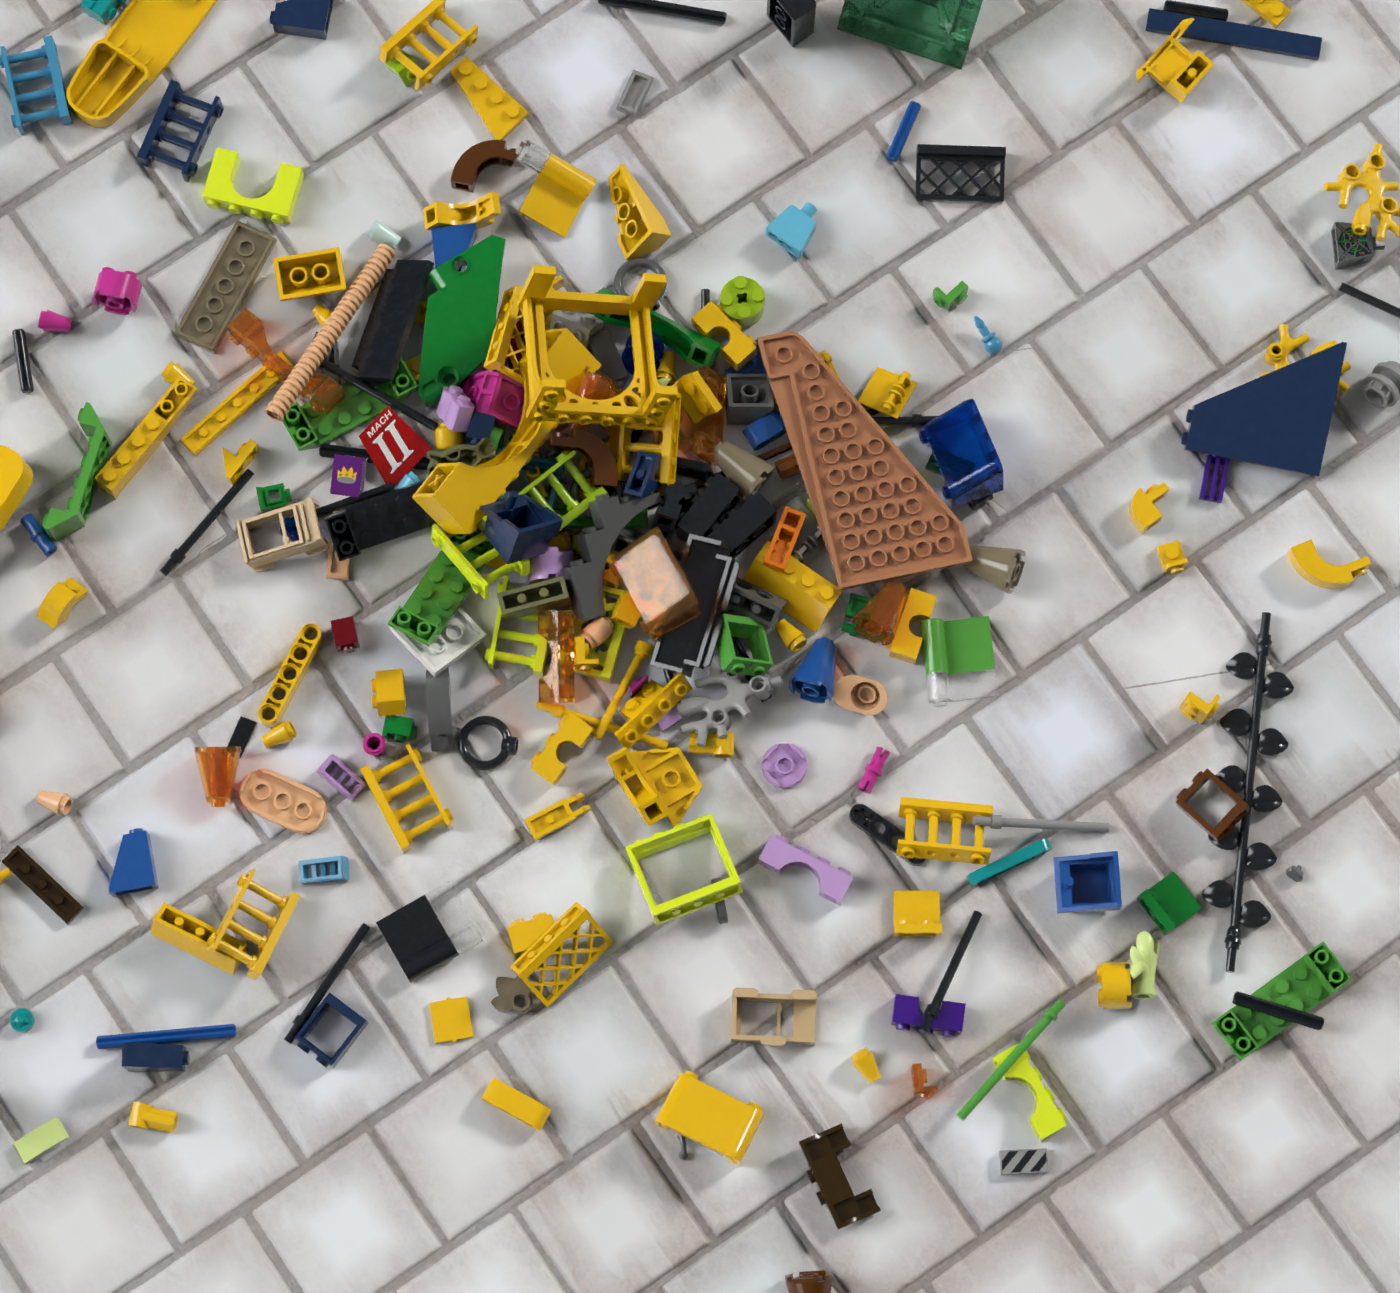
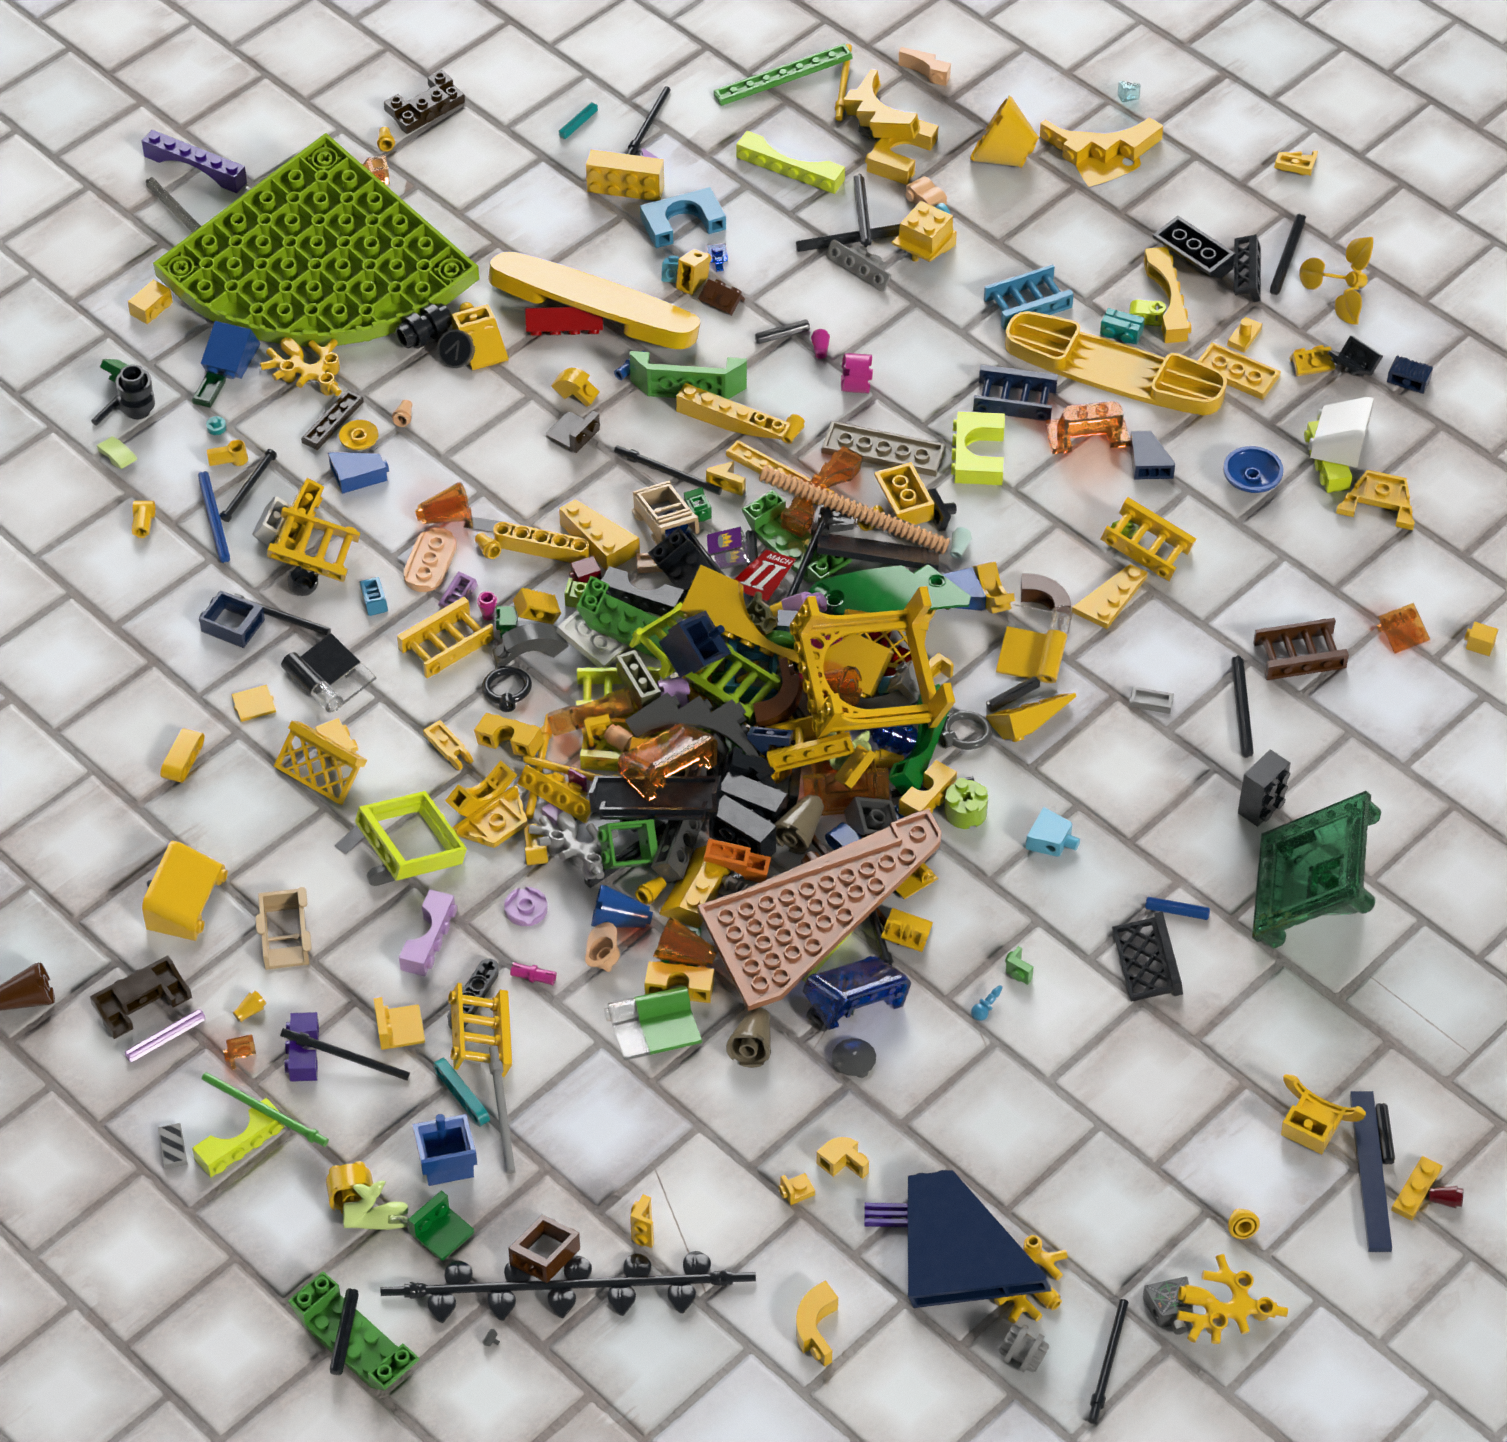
camera: 80 degrees right, 25 degrees down
(73, 847) = (358, 435): none -> yellow dish
(75, 1014) = (233, 453): none -> yellow piece
(126, 991) = (269, 456): none -> black bar
(127, 614) = (574, 431): none -> bracket
(154, 1057) = (192, 503): dark blue slope -> none
(196, 969) = (270, 521): none -> white brick
(248, 69) = (1088, 421): none -> clear orange windscreen
(293, 945) = (302, 582): none -> black hair
(303, 604) = (607, 541): none -> yellow wedge
(346, 244) = (942, 510): none -> black tile
(371, 603) = (654, 601): none -> arch
(374, 653) = (573, 592): none -> lime brick
(509, 993) = (275, 740): dark tan plate -> none
(601, 226) = (1013, 694): none -> black axle
(659, 935) = (350, 840): none -> sticker
(885, 1157) = (165, 1035): none -> axle
(1028, 474) = (854, 1057): none -> dark grey dish
(1276, 160) = (1243, 1223): none -> yellow brick

